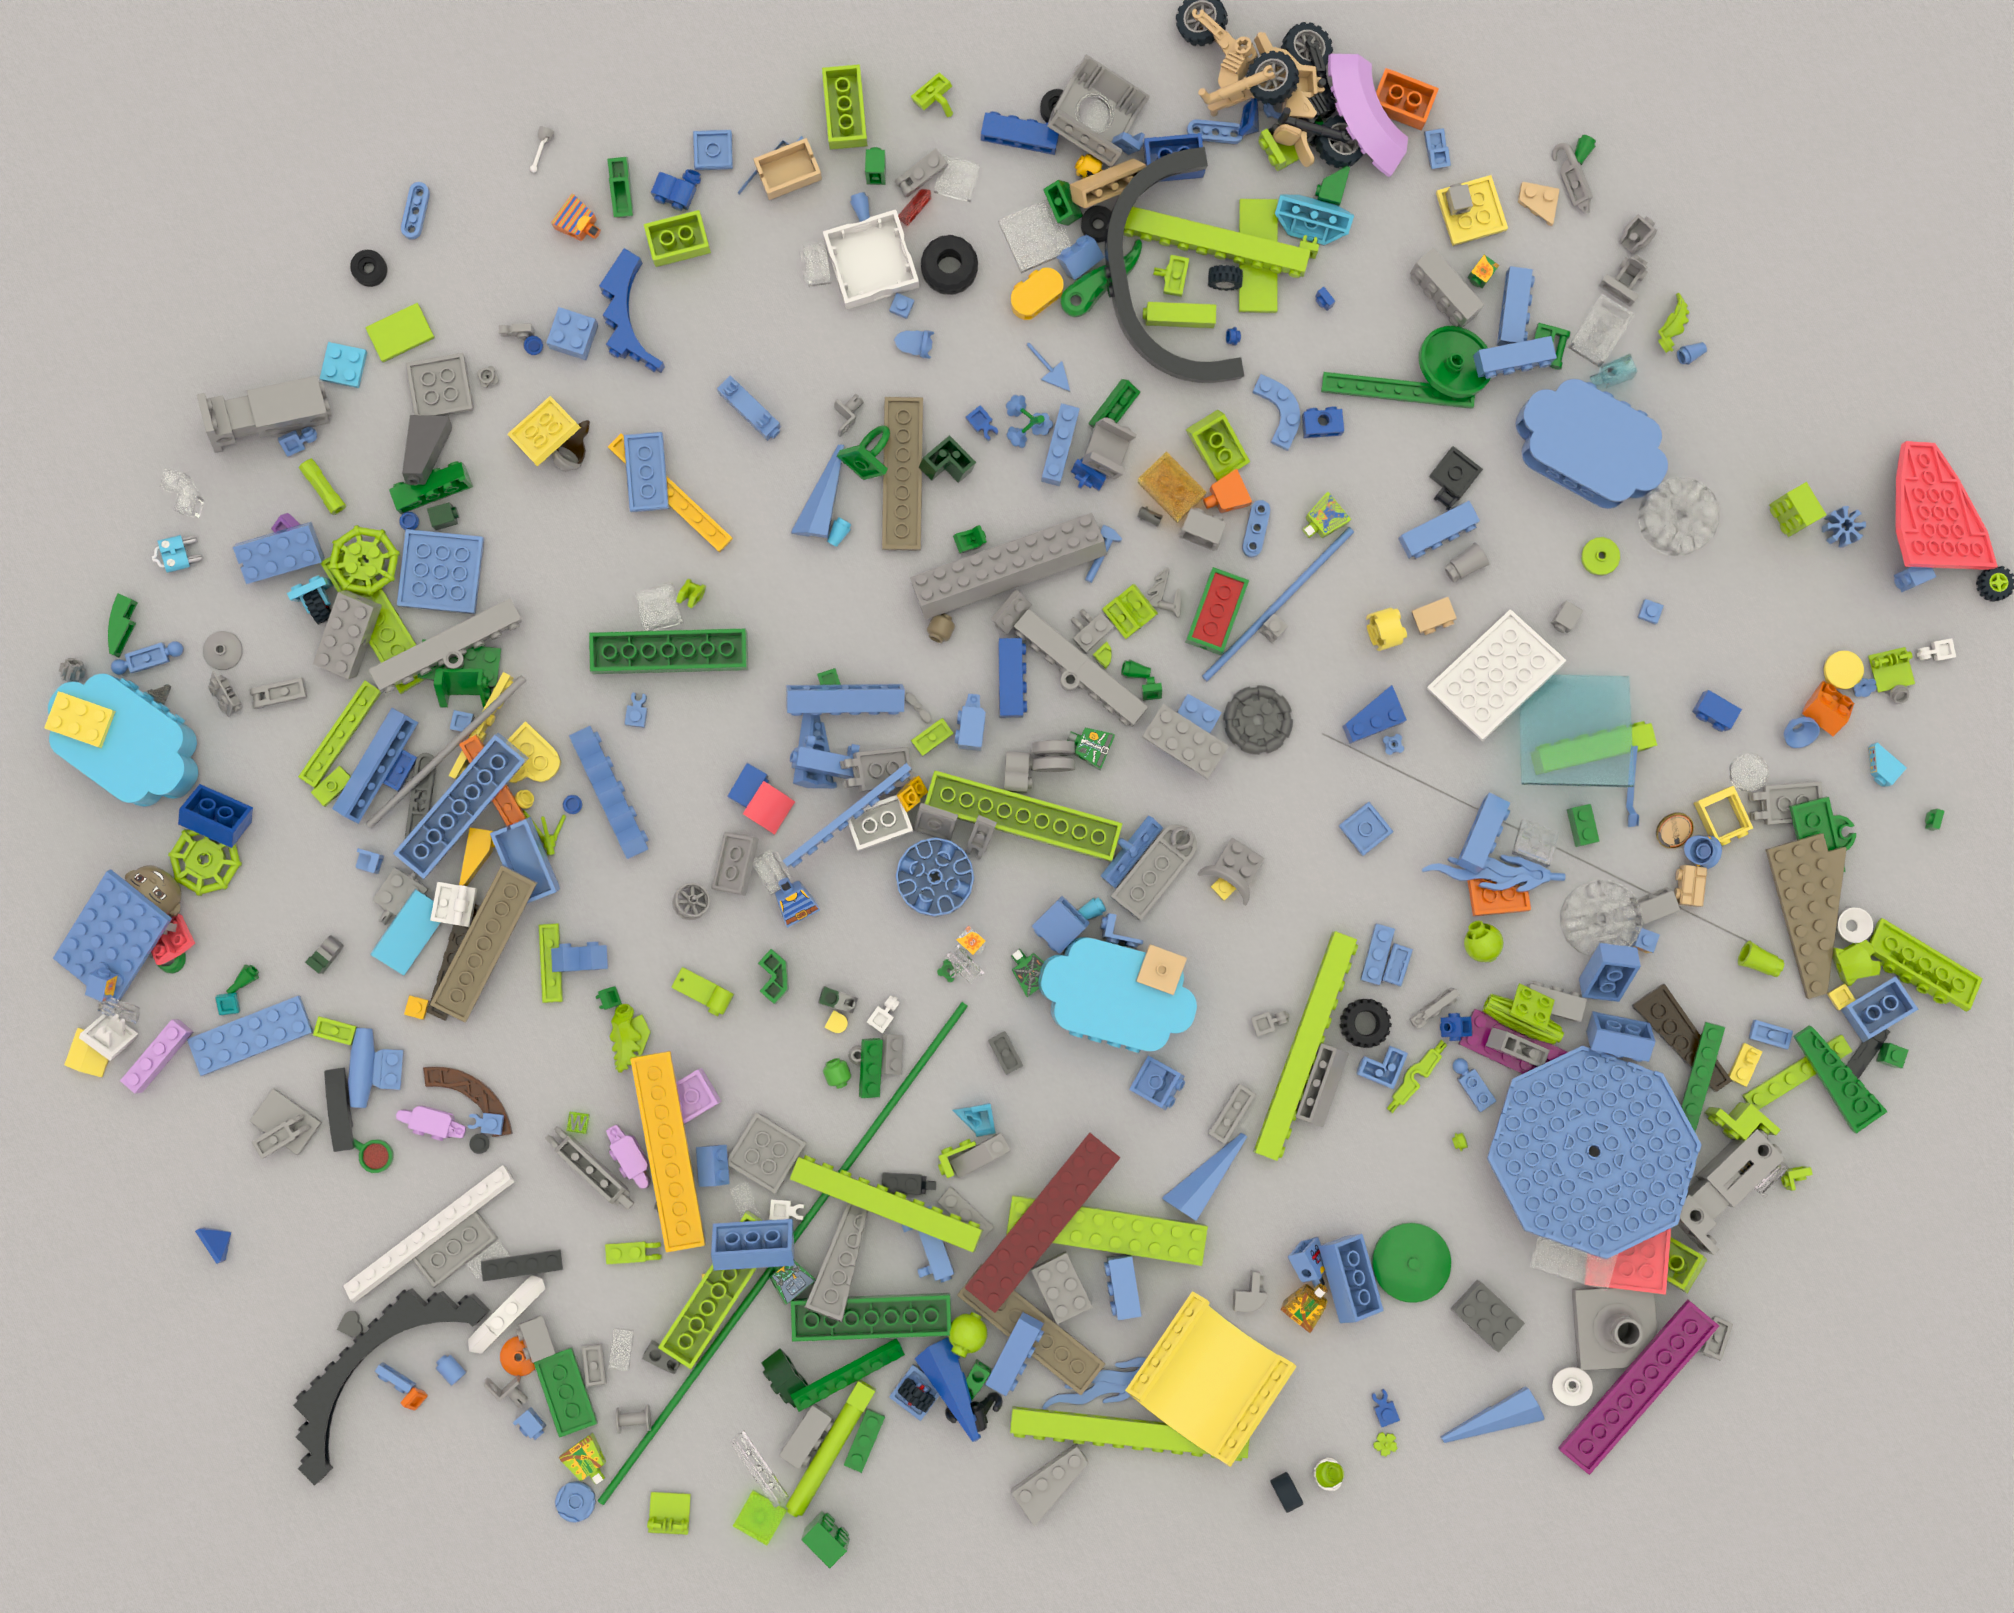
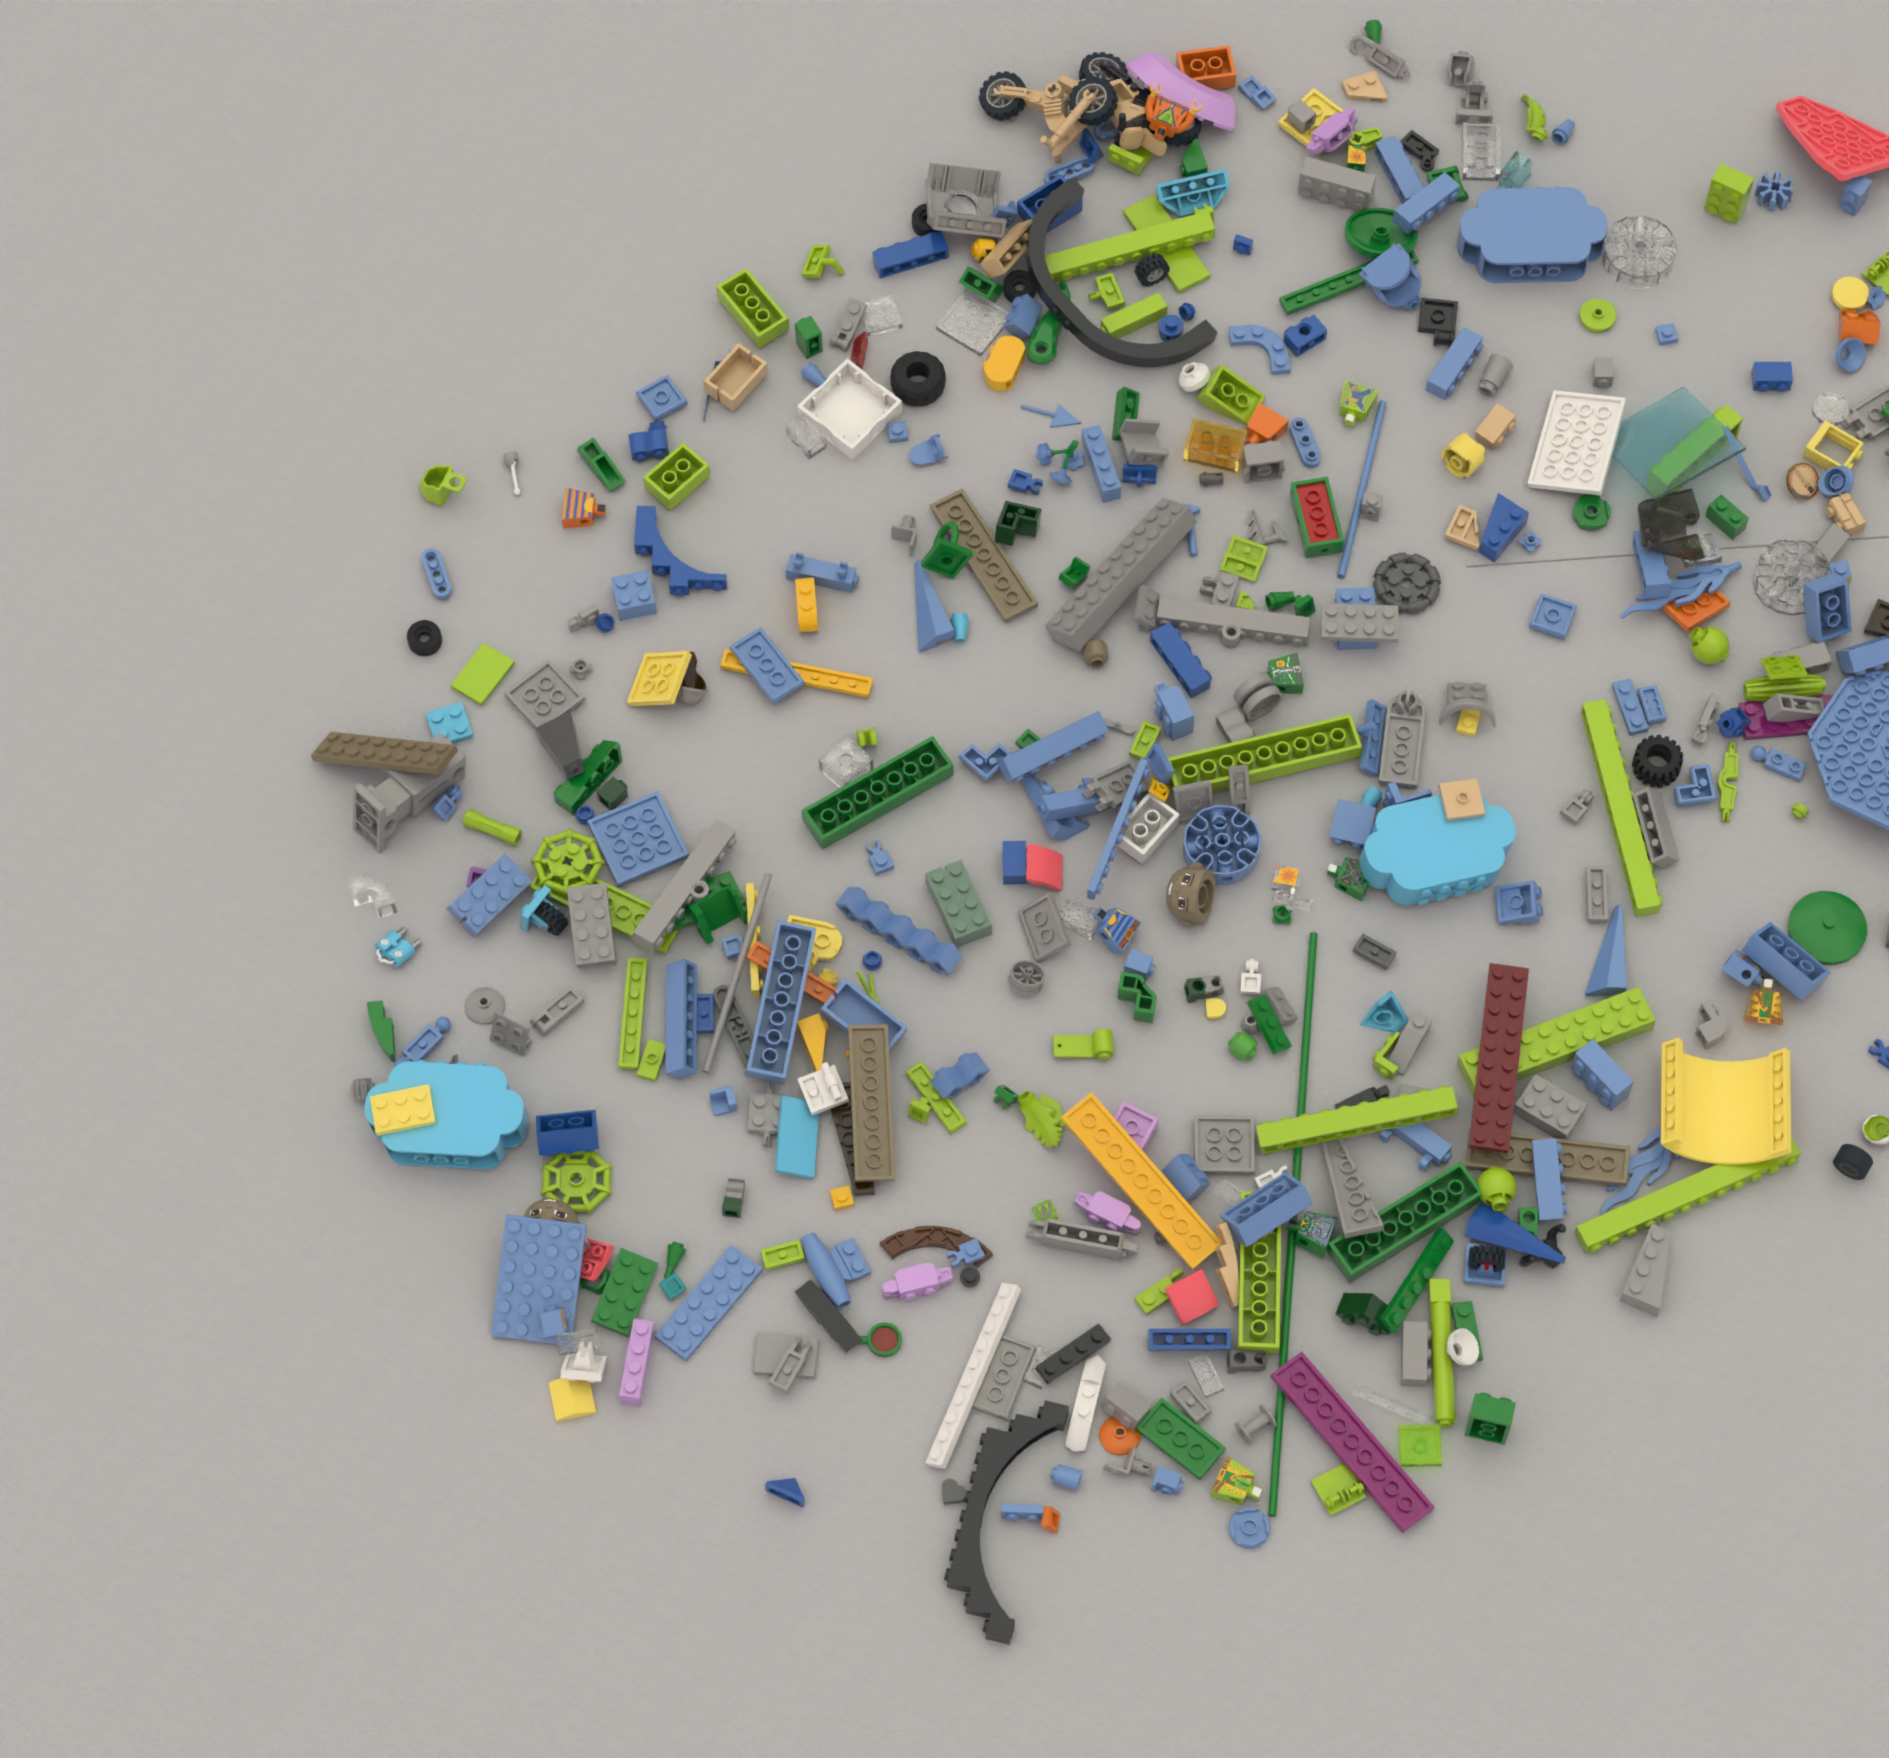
camera: 20 degrees left, 20 degrees down
(184, 985) = (624, 1292): none -> green plate
(257, 368) = (384, 753): none -> dark tan plate
(465, 123) = (439, 483): none -> lime piece
(527, 968) = (919, 1110): none -> lime tile
(623, 1312) = (1189, 1339): none -> blue brick
(650, 1275) = (1191, 1296): none -> coral slope
(675, 797) = (958, 903): none -> sand green piece
(694, 1270) = (1228, 1272): none -> tan slope
(704, 1482) = (1352, 1442): none -> magenta plate
(715, 433) = (806, 605): none -> yellow brick
(777, 677) = (983, 765): none -> medium blue brick
(795, 946) = (1139, 964): none -> medium blue brick
(848, 1464) = (1466, 1345): none -> white piece
(877, 910) = (1191, 894): none -> dark tan piece
(926, 771) = (1159, 764): none -> medium blue tile
(1199, 411) = (1196, 379): none -> white piece
(1207, 345) = (1170, 327): none -> blue piece
(1330, 134) = (1168, 116): none -> orange torso
(1343, 697) = (1464, 528): none -> tan wing
(1436, 417) = (1394, 278): none -> medium blue animal
(1467, 759) = (1588, 521): none -> green plate
(1476, 233) = (1332, 132): none -> lavender hinge
(1504, 255) = (1365, 138): none -> lime piece
(1517, 808) = (1664, 525): none -> clear smoke windscreen
(1549, 295) = (1421, 149): none -> black hinge

